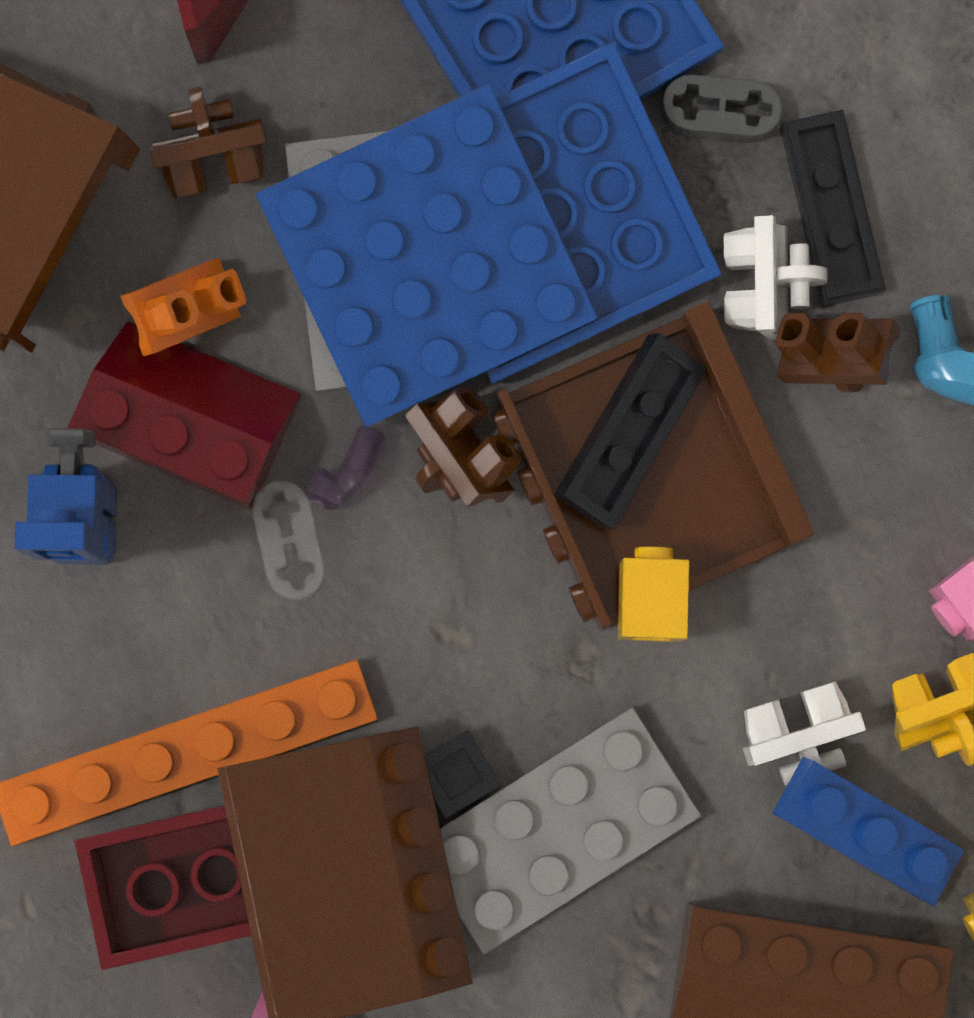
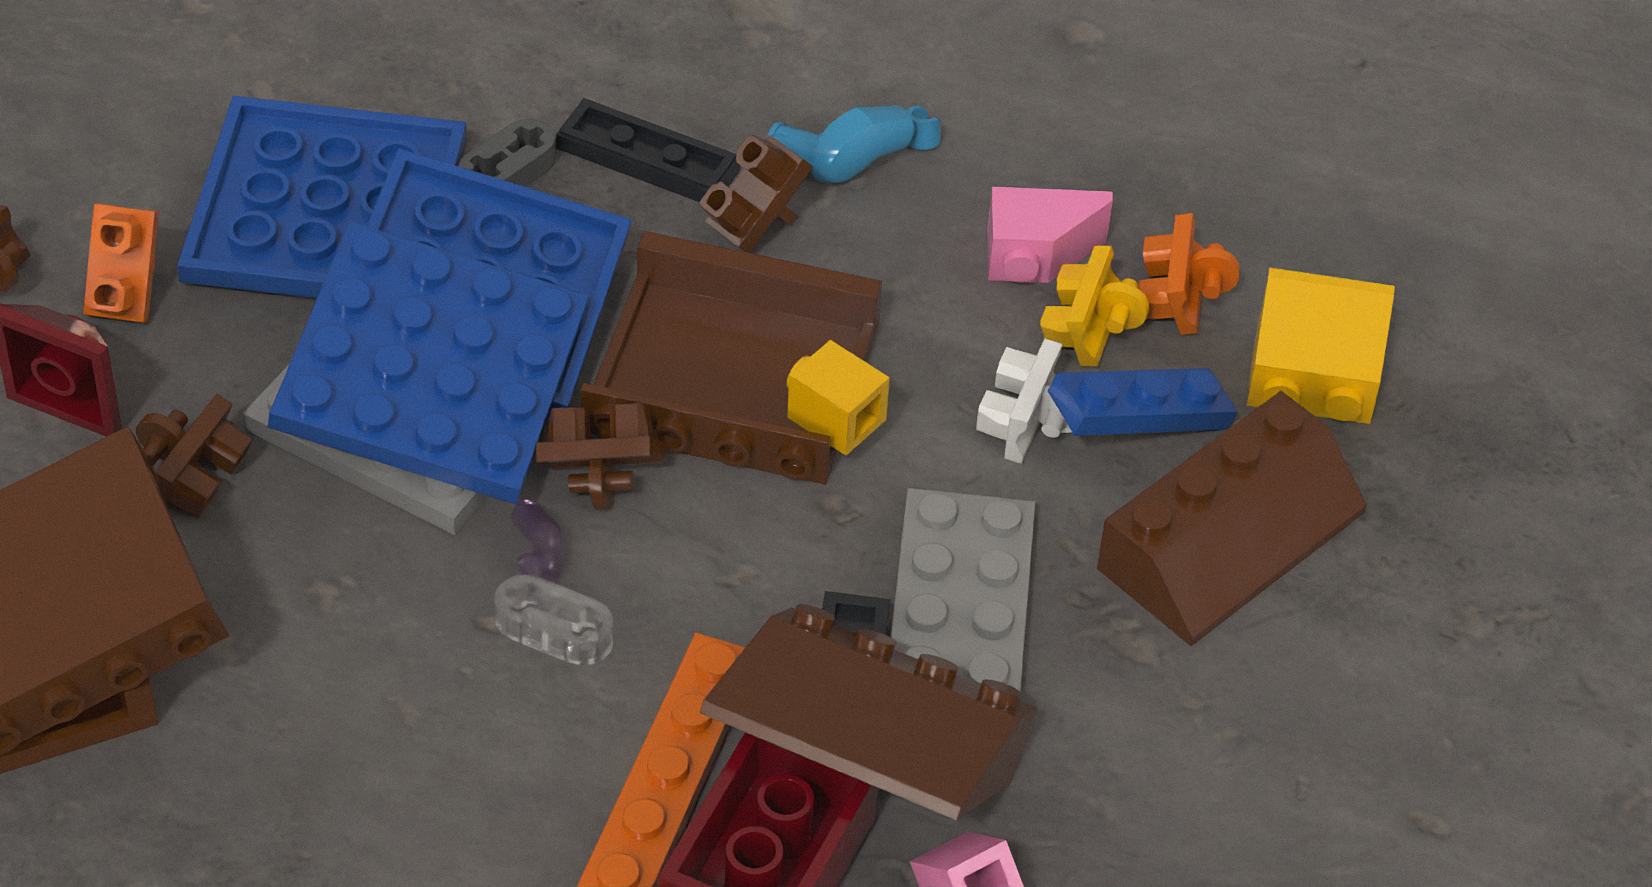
camera: 50 degrees left, 35 degrees down
(69, 506) = (386, 692): blue plate -> none
(184, 305) = (296, 543): orange hips -> none
(187, 416) = (388, 620): dark red slope -> none
(630, 431) = (694, 342): black plate -> none
(766, 251) = (667, 195): white hips -> none

